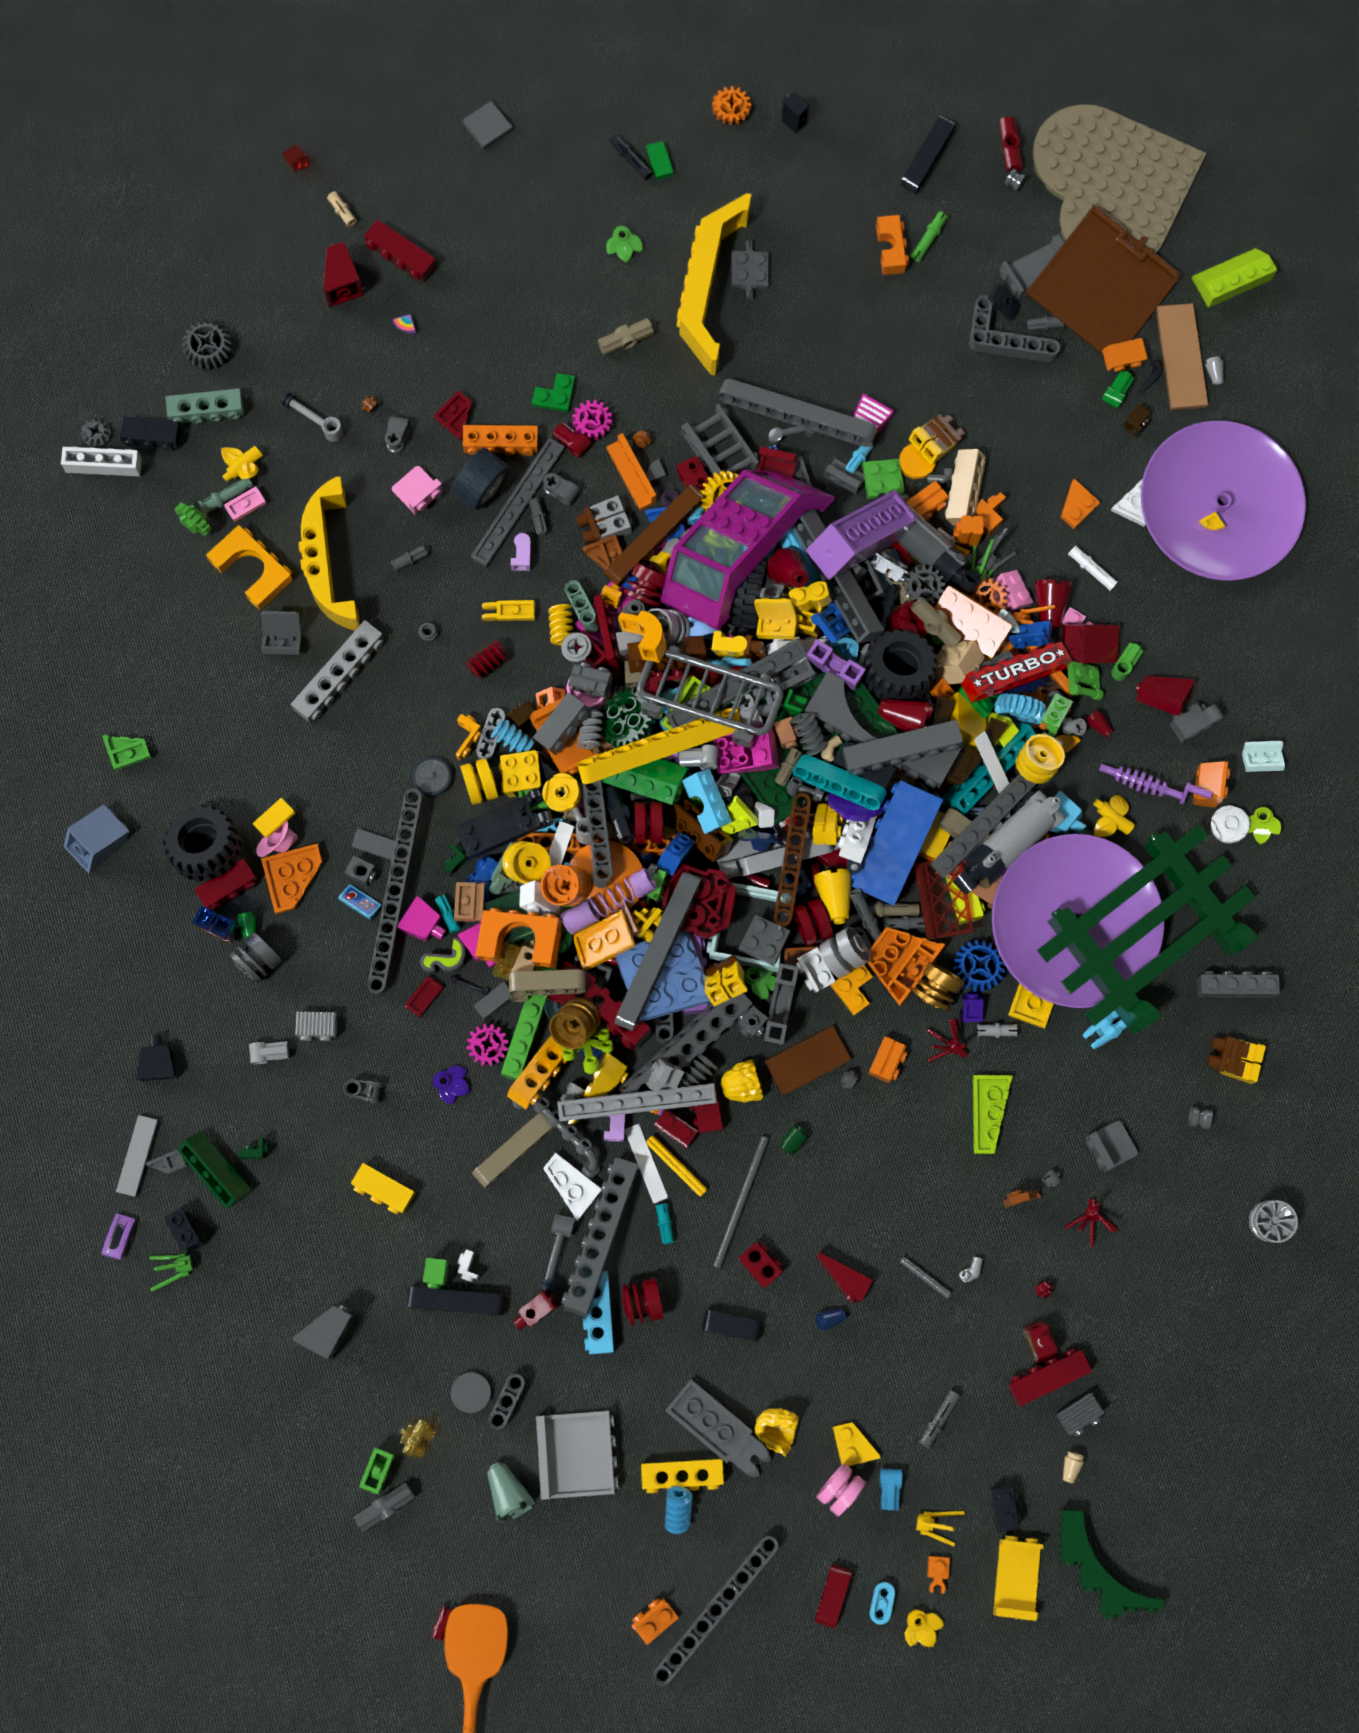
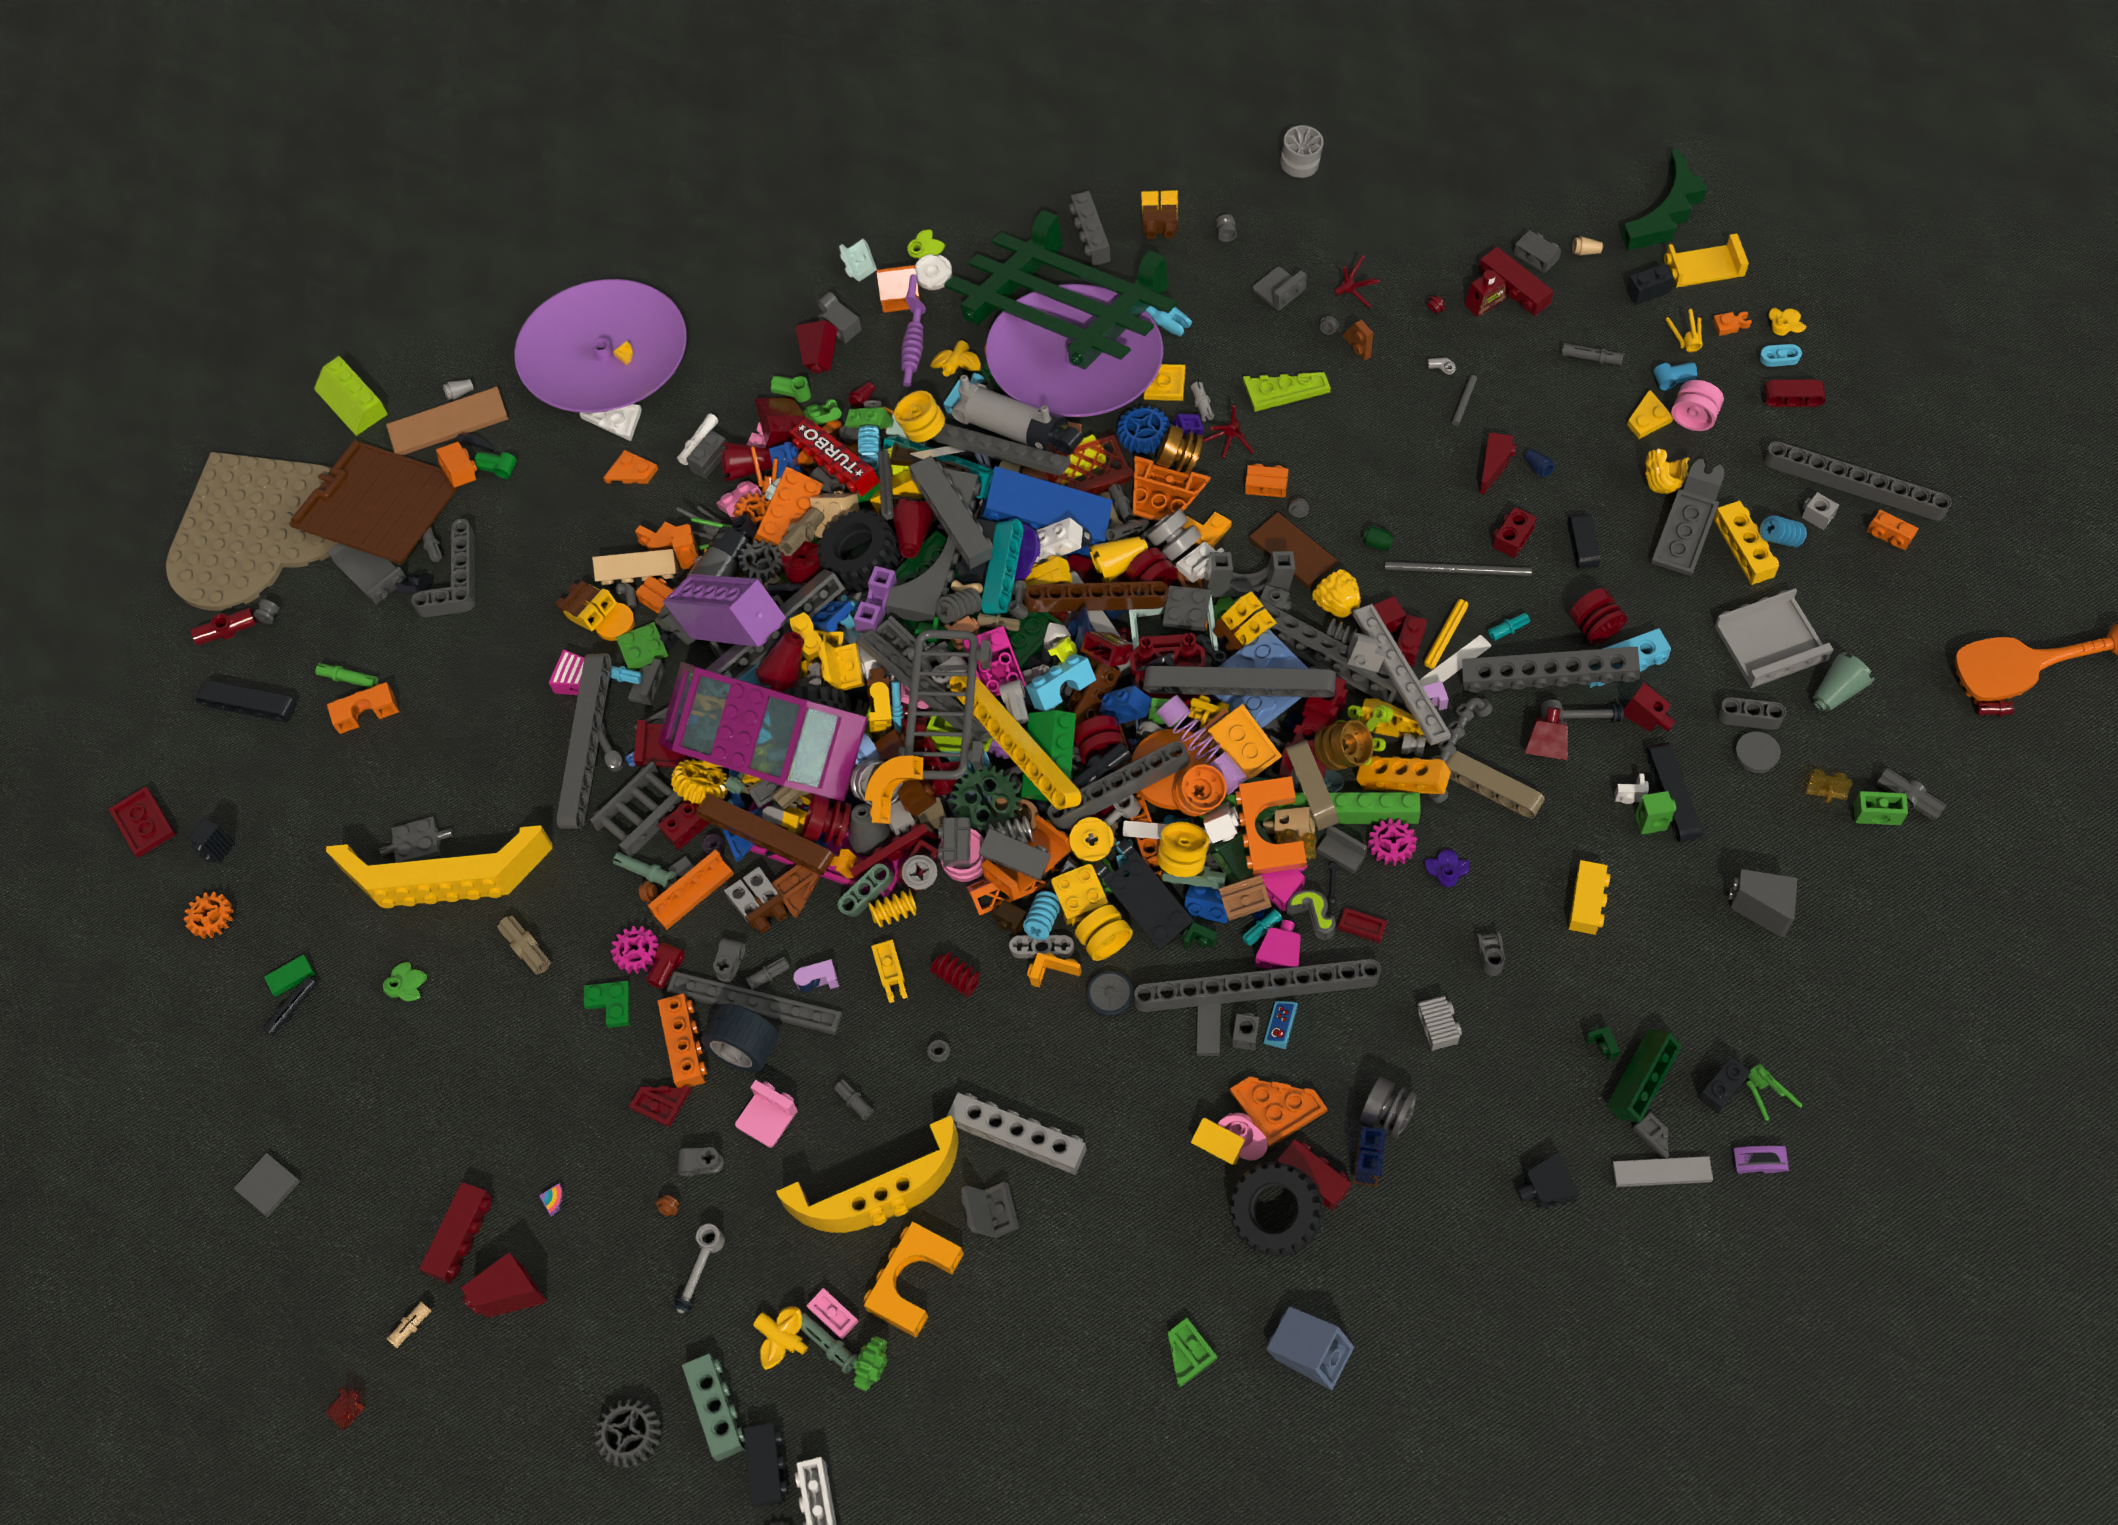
camera: 95 degrees left, 15 degrees down
(247, 923) = (1348, 1137): green cone -> none
(262, 1052) = (1490, 1069): light grey piece -> none
(537, 1211) = (1549, 736): none -> dark red torso
(572, 1185) = (1506, 720): white wing -> none
(657, 446) = (652, 872): none -> sand green pin
(688, 1566) = (1823, 517): none -> light grey brick
(702, 950) = (1218, 657): none -> black bar
(705, 891) = (1165, 659): none -> black bar
(731, 852) = (1113, 652): none -> dark red torso
(836, 64) = (142, 822): none -> dark red plate
(963, 705) = (885, 485): none -> dark grey axle
(1068, 569) = (706, 455): none -> dark grey brick
(1136, 420) = (527, 440): dark brown brick -> none

